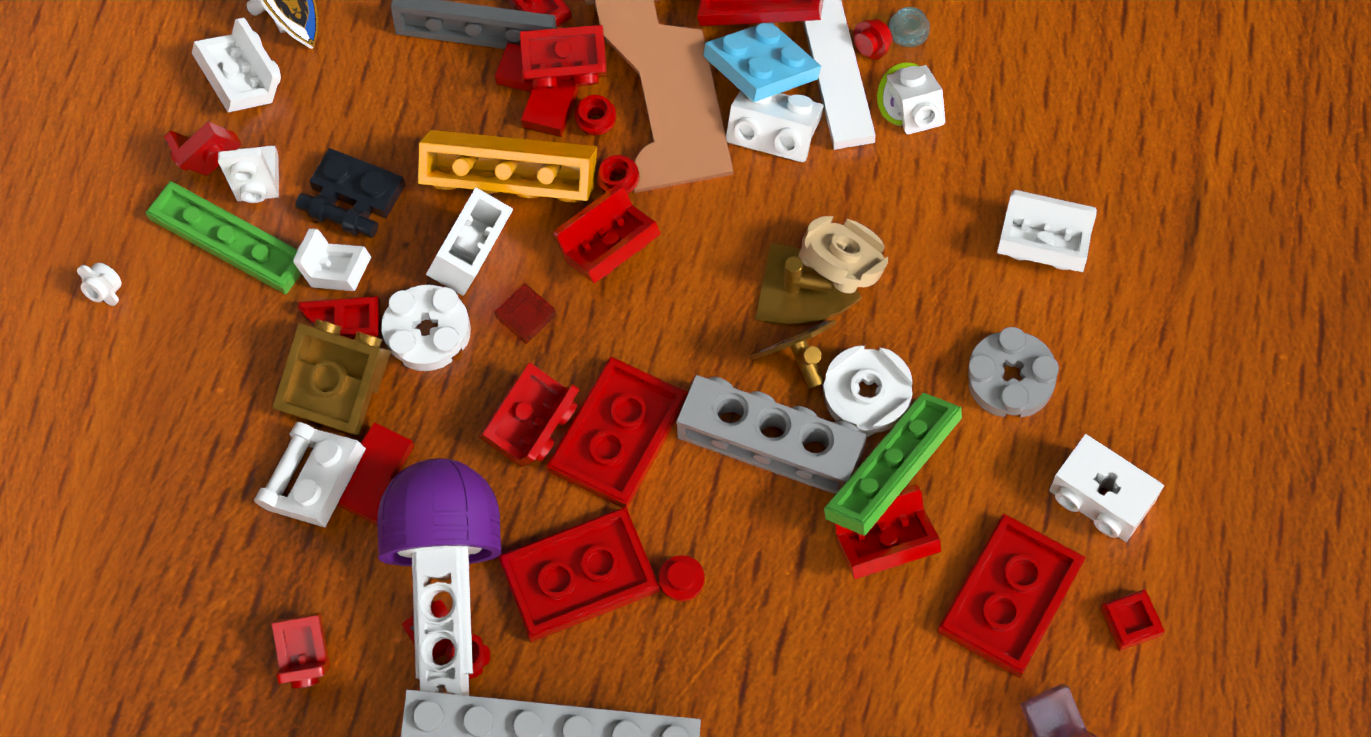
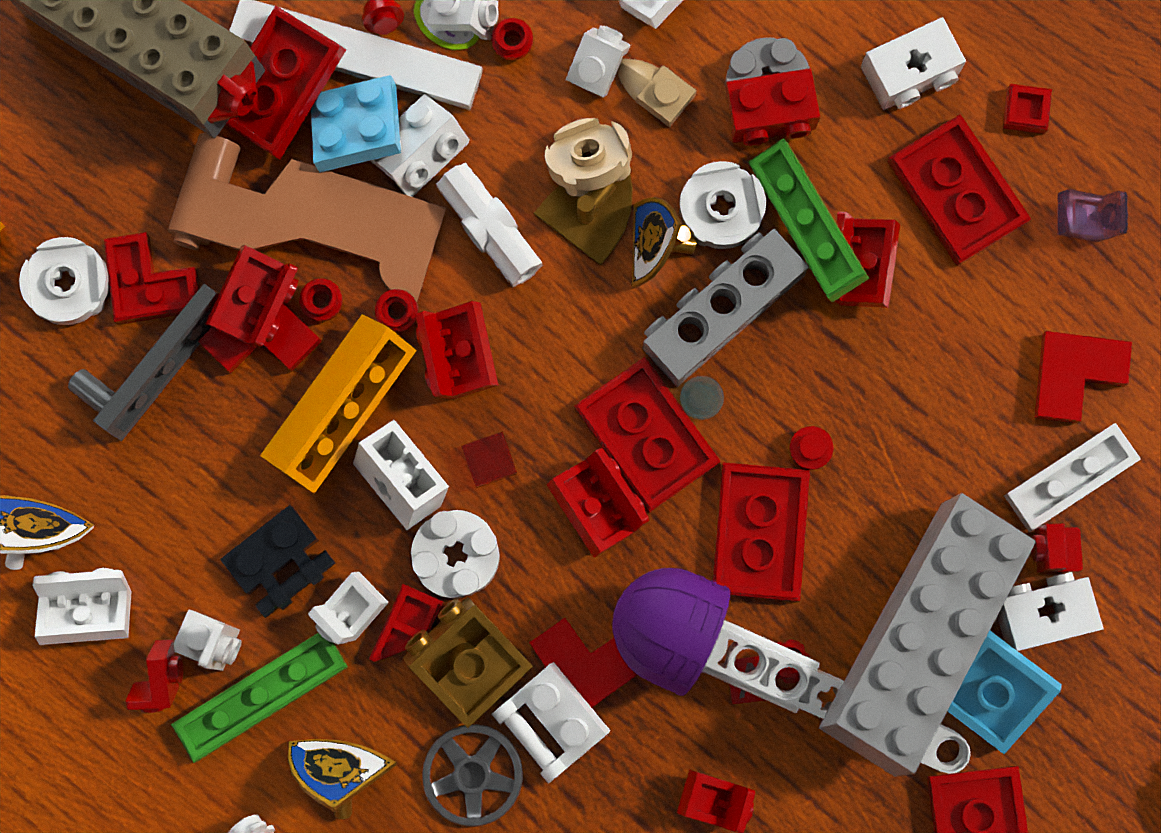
camera: 65 degrees left, 15 degrees up
(183, 316) = (335, 771): none -> shield
(234, 437) = (472, 775): none -> flat silver wheel
(677, 459) = (701, 397): none -> clear light blue plate
(735, 208) = (489, 224): none -> white piece
(919, 138) = (509, 27): none -> red plate
(940, 221) = (597, 60): none -> white bracket
(944, 286) = (656, 89): none -> tan plate
(984, 383) = (773, 106): none -> red bracket

